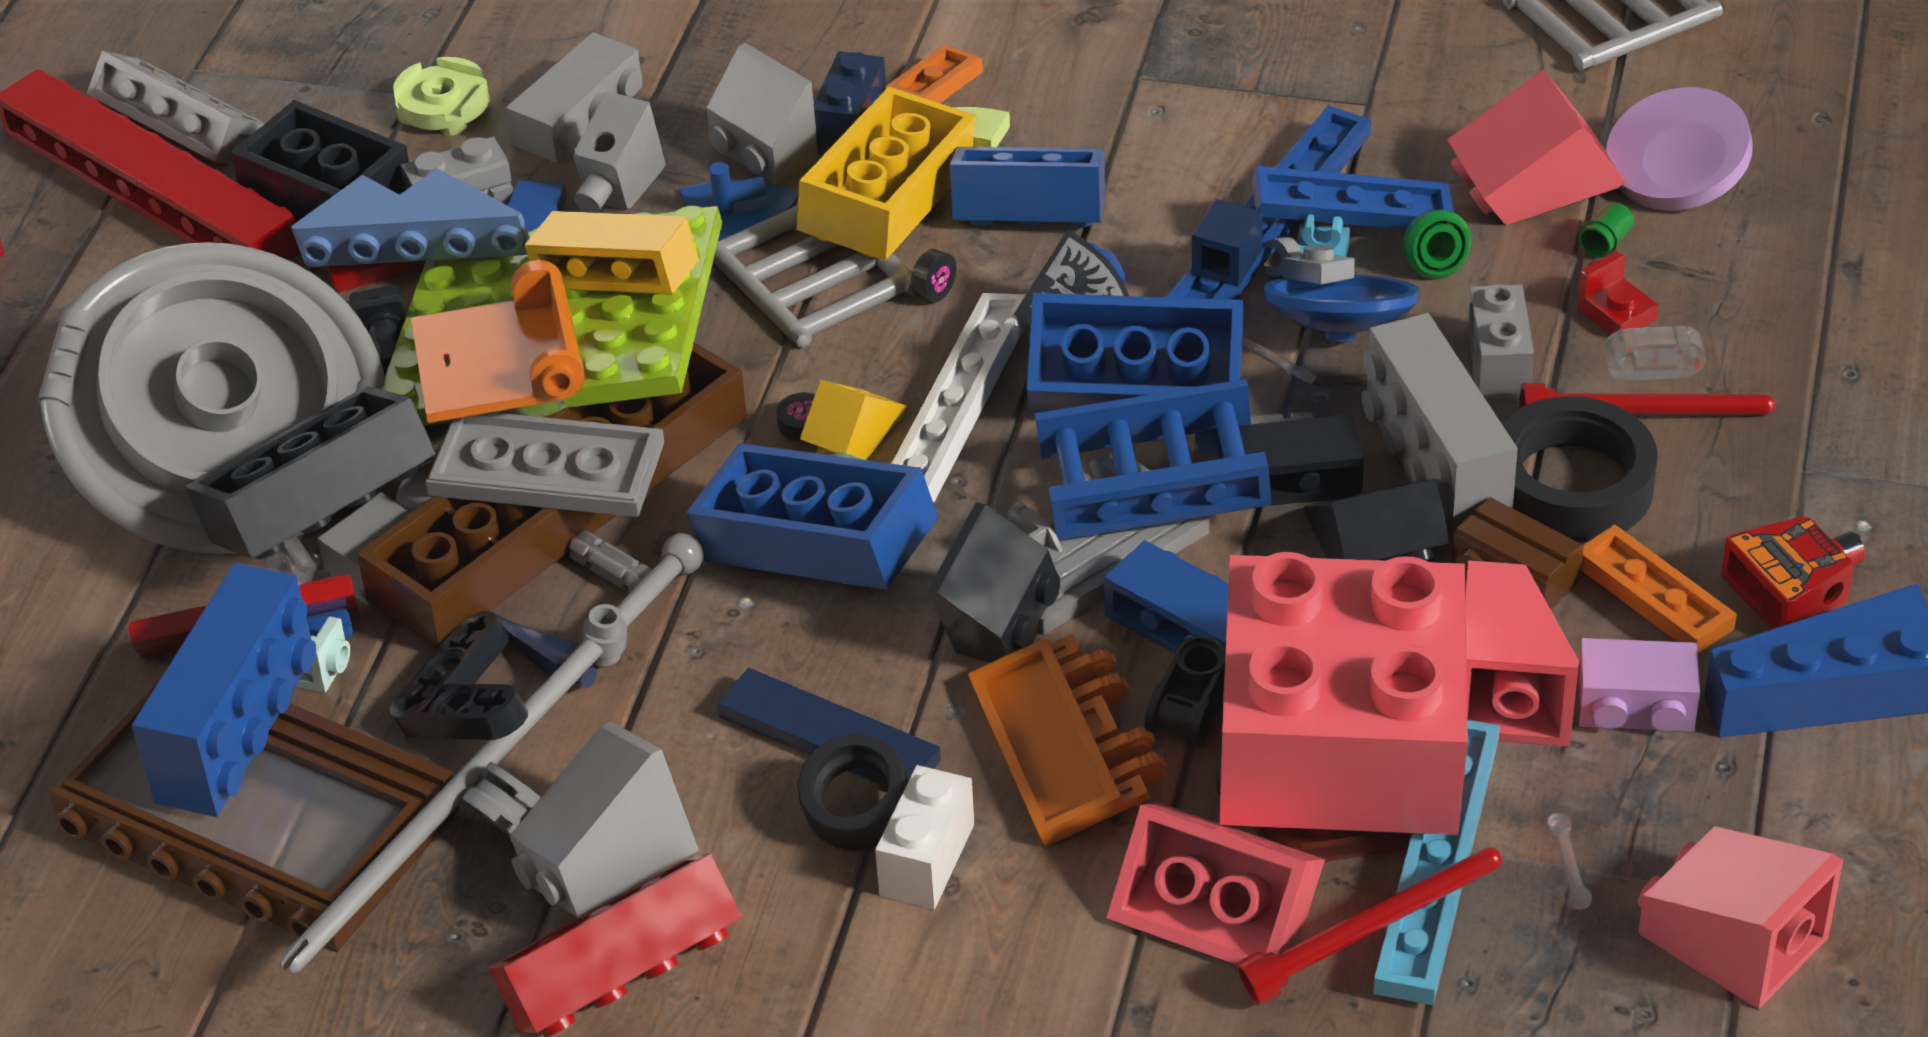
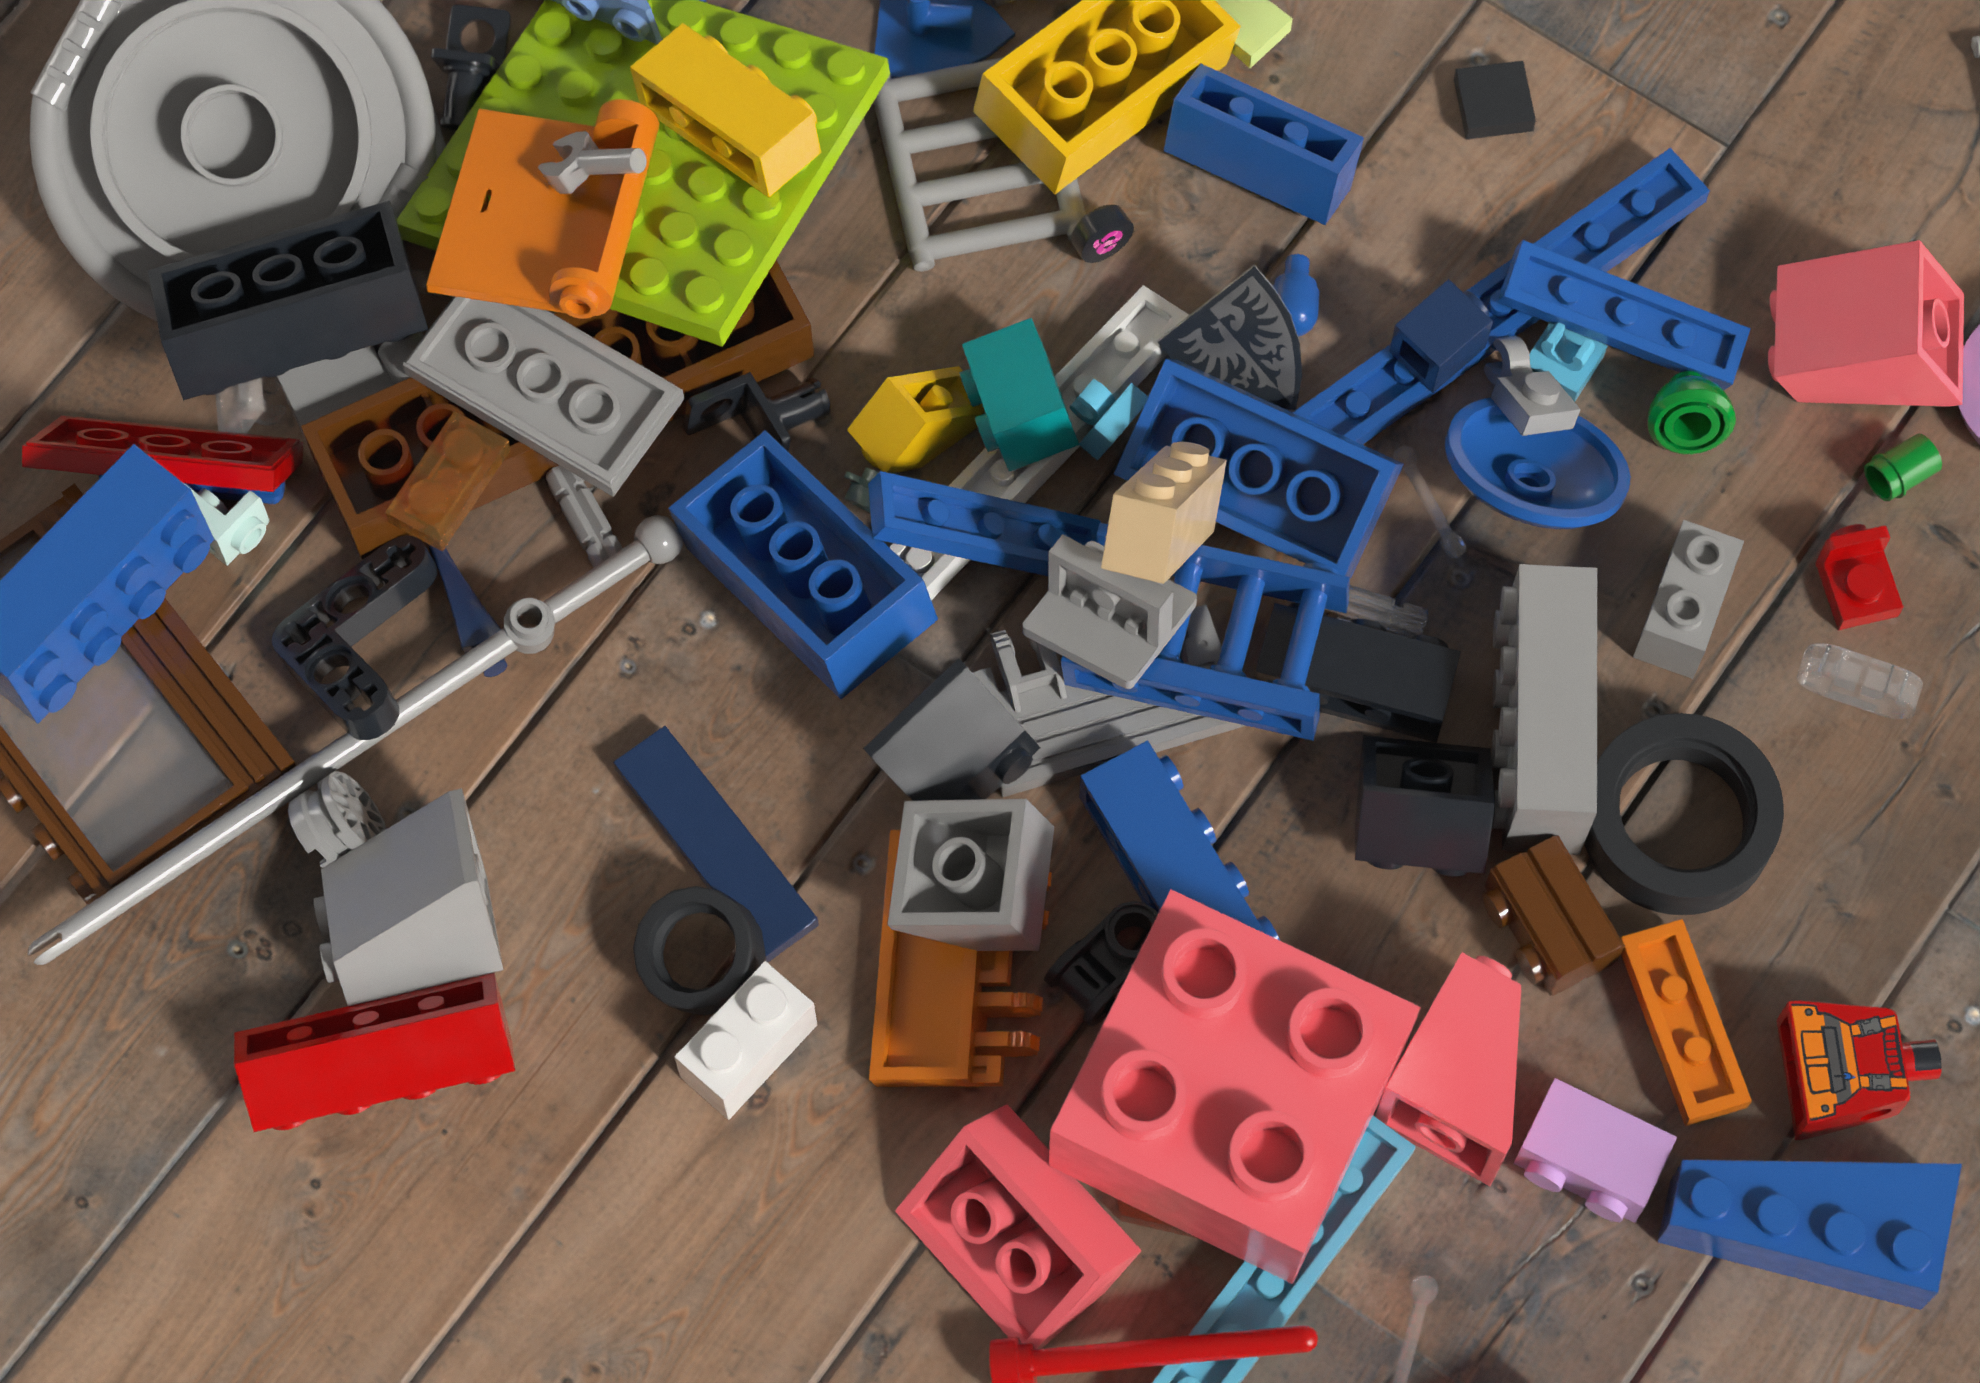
camera: 20 degrees right, 25 degrees up
(498, 543) = (448, 481): none -> clear orange plate
(509, 308) = (584, 158): none -> light grey bar
(710, 450) = (759, 411): none -> black bracket
(793, 413) = (867, 373): black tile -> none
(926, 370) = (1018, 394): none -> teal brick
(946, 449) = (970, 523): none -> blue plate
(1001, 361) = (1106, 415): none -> medium azure tile
(1055, 650) = (972, 873): none -> light grey slope
(1071, 445) = (1103, 616): none -> light grey bracket
(1085, 362) = (1164, 512): none -> tan brick
(1182, 125) = (1494, 100): none -> black piece
(1664, 403) = (1693, 697): red piece -> none

